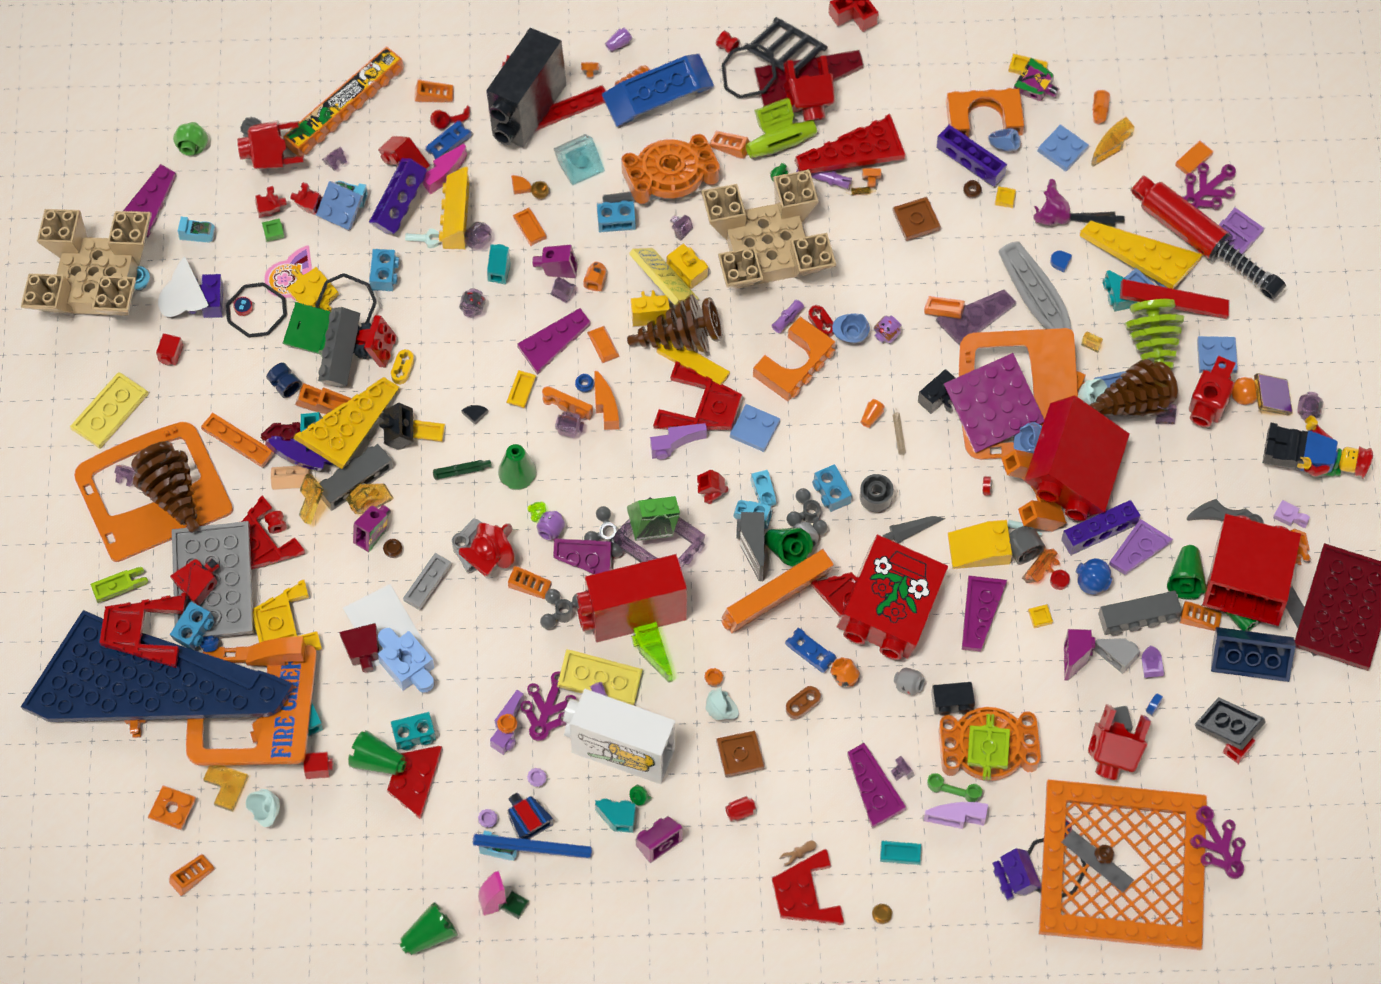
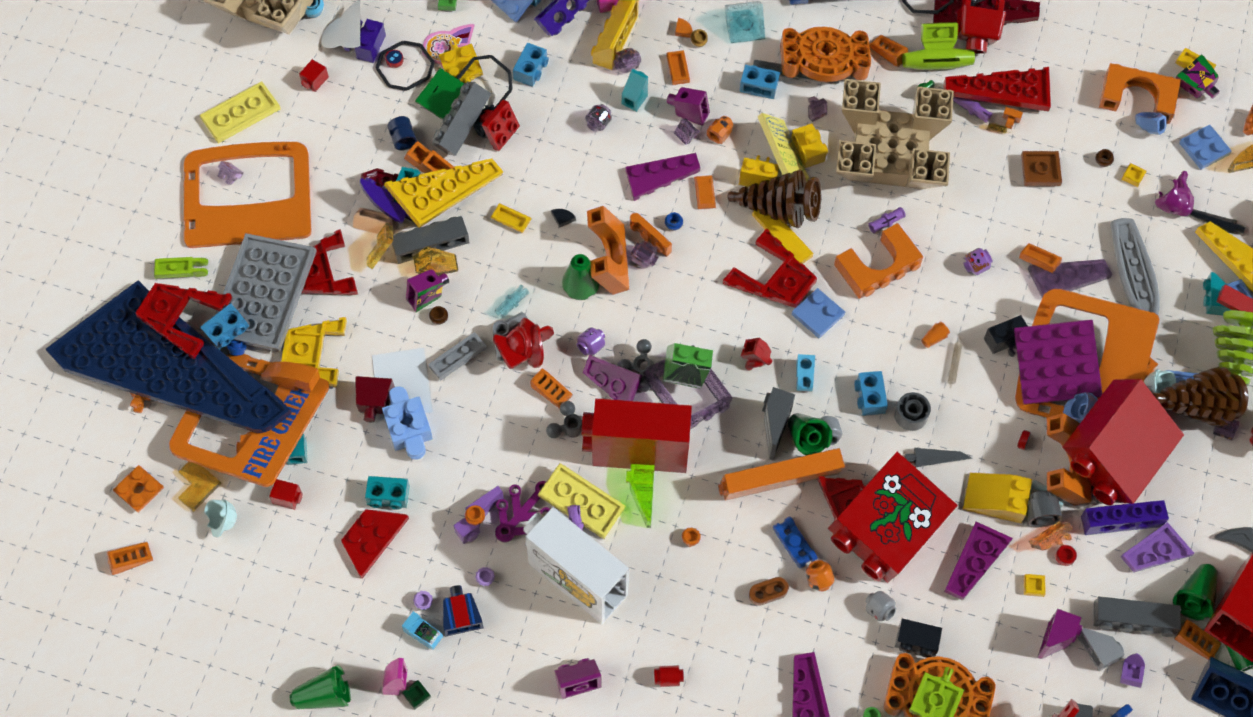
camera: 20 degrees right, 0 degrees up
(167, 481) = (257, 186): reddish brown plant -> none
(196, 579) = (246, 285): red torso -> none
(237, 440) = (339, 173): orange plate -> none
(275, 522) = (342, 257): red wheel -> none
(375, 755) = (340, 503): green cone -> none
(397, 426) = (486, 205): black brick -> none
(398, 365) = (516, 157): yellow beam -> none
(424, 238) = (580, 49): light aqua bar -> none
(458, 511) = (511, 301): none -> clear light blue pin
(461, 469) = (528, 263): dark green piece -> none
(521, 388) = (617, 204): yellow tile -> none
(531, 846) = (452, 642): blue axle -> none
(541, 506) = (584, 320): clear neon green plate -> none
(544, 449) = (612, 269): none -> orange arch
(605, 403) = (685, 245): orange slope -> none
(617, 815) = (548, 641): teal slope -> none
(639, 795) = (575, 628): green plate -> none
(663, 445) = (724, 301): medium lavender slope -> none
(720, 705) = (687, 567): light aqua piece -> none
(740, 753) = (688, 621): dark orange plate -> none
(749, 506) = (786, 385): medium azure leg -> none
(803, 496) = (824, 409): dark grey piece -> none
(824, 319) = (921, 233): red beam -> none
(851, 328) = (943, 249): medium blue piece -> none
(902, 769) = (842, 692): clear purple tile -> none
(971, 155) = (1114, 126): dark purple brick -> none
(1060, 260) = (1168, 249): blue tile -> none
(1091, 341) = (1174, 335): clear yellow tile -> none
(1094, 576) = (1101, 563): blue plant -> none

